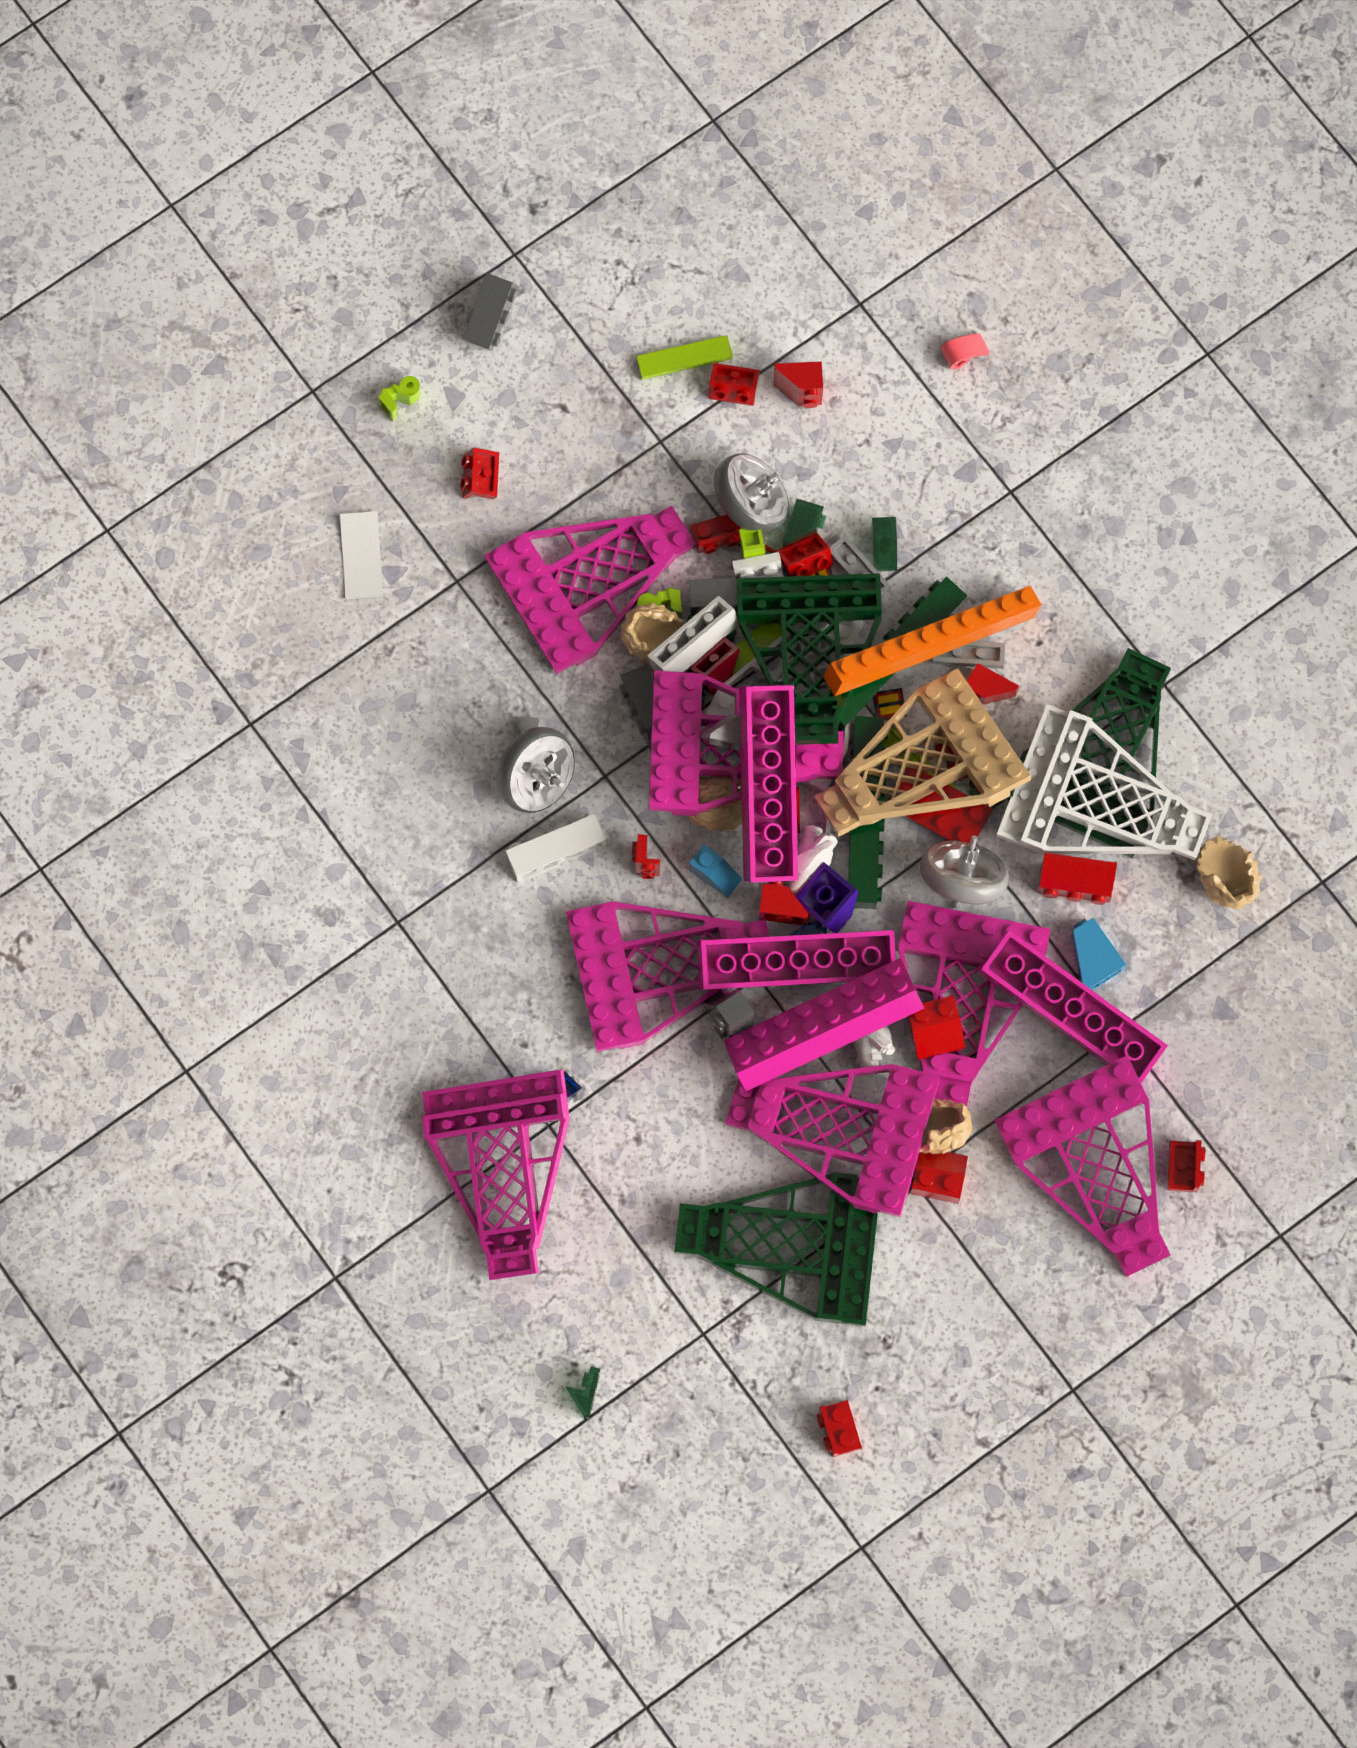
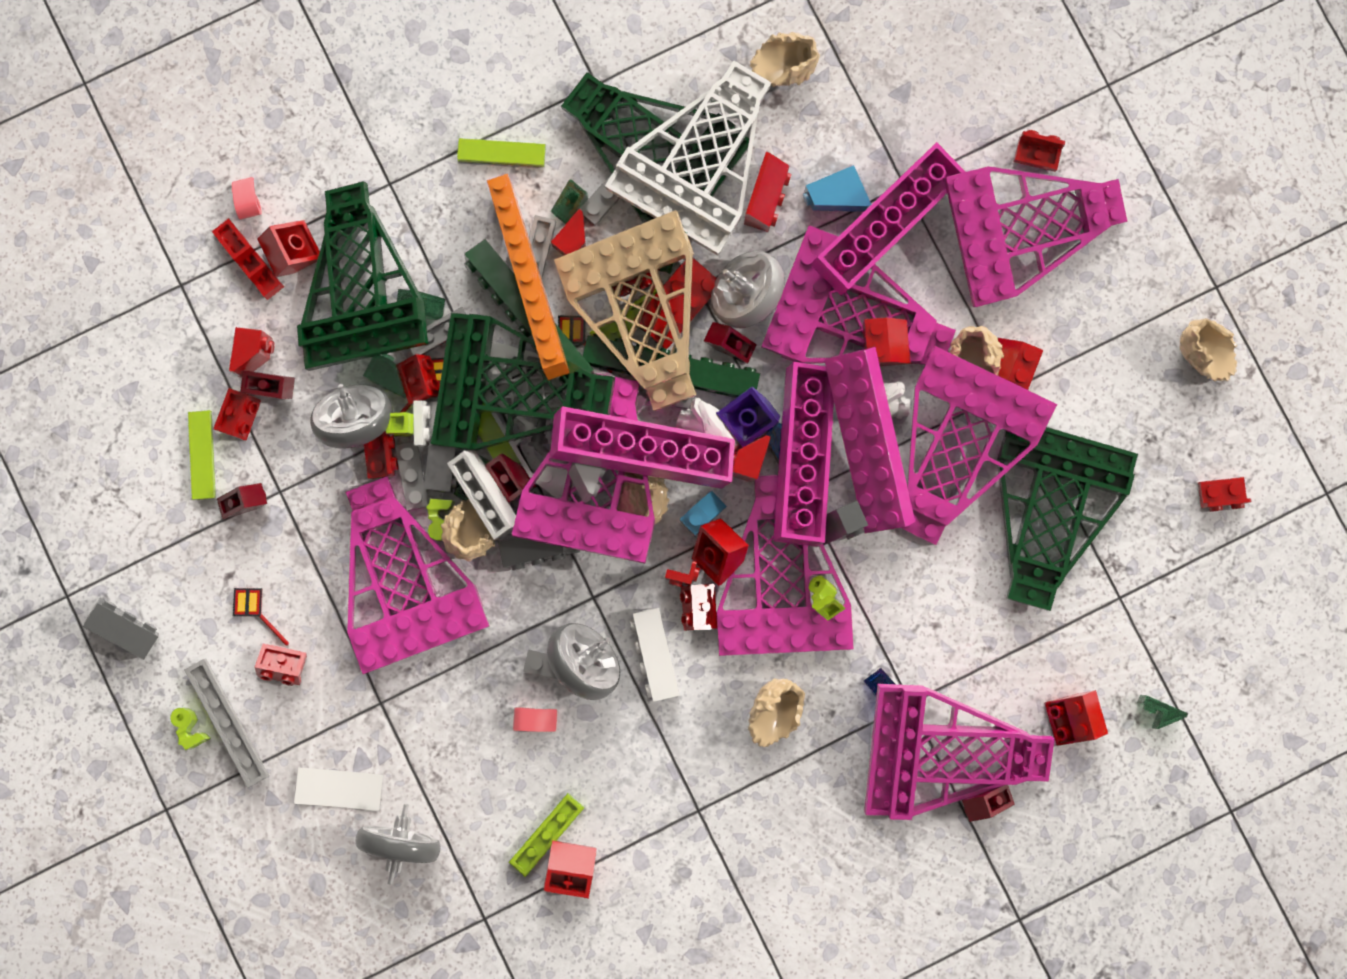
camera: 80 degrees left, 10 degrees up
(316, 618) = (398, 844): none -> wheel
(316, 797) = (570, 869): none -> slope
(348, 770) = (549, 830): none -> lime tile
(411, 432) = (226, 723): none -> light grey plate
(456, 1221) = (988, 803): none -> dark red slope
(466, 737) = (534, 719): none -> coral panel
(515, 978) = (776, 711): none -> tan hair
(537, 432) = (248, 603): none -> piece
(563, 1301) = (1076, 718): none -> red slope
(614, 884) = (698, 607): none -> bracket
(644, 405) = (242, 500): none -> dark red slope
(645, 1005) = (823, 597): none -> lime leg
(678, 891) = (719, 550): none -> red slope
(704, 567) = (412, 476): none -> light grey plate
(769, 407) = (267, 385): none -> dark red slope
(852, 505) = (369, 331): none -> dark green wing
(900, 364) = (248, 259): none -> red slope
(905, 869) = (730, 342): none -> dark red slope
(920, 403) = (289, 247): none -> red slope
(996, 1384) = (1209, 349): none -> tan hair
(1027, 676) = (569, 201): none -> clear green slope
(1027, 707) = (599, 204): none -> light grey plate
(1067, 599) = (501, 152): none -> lime tile

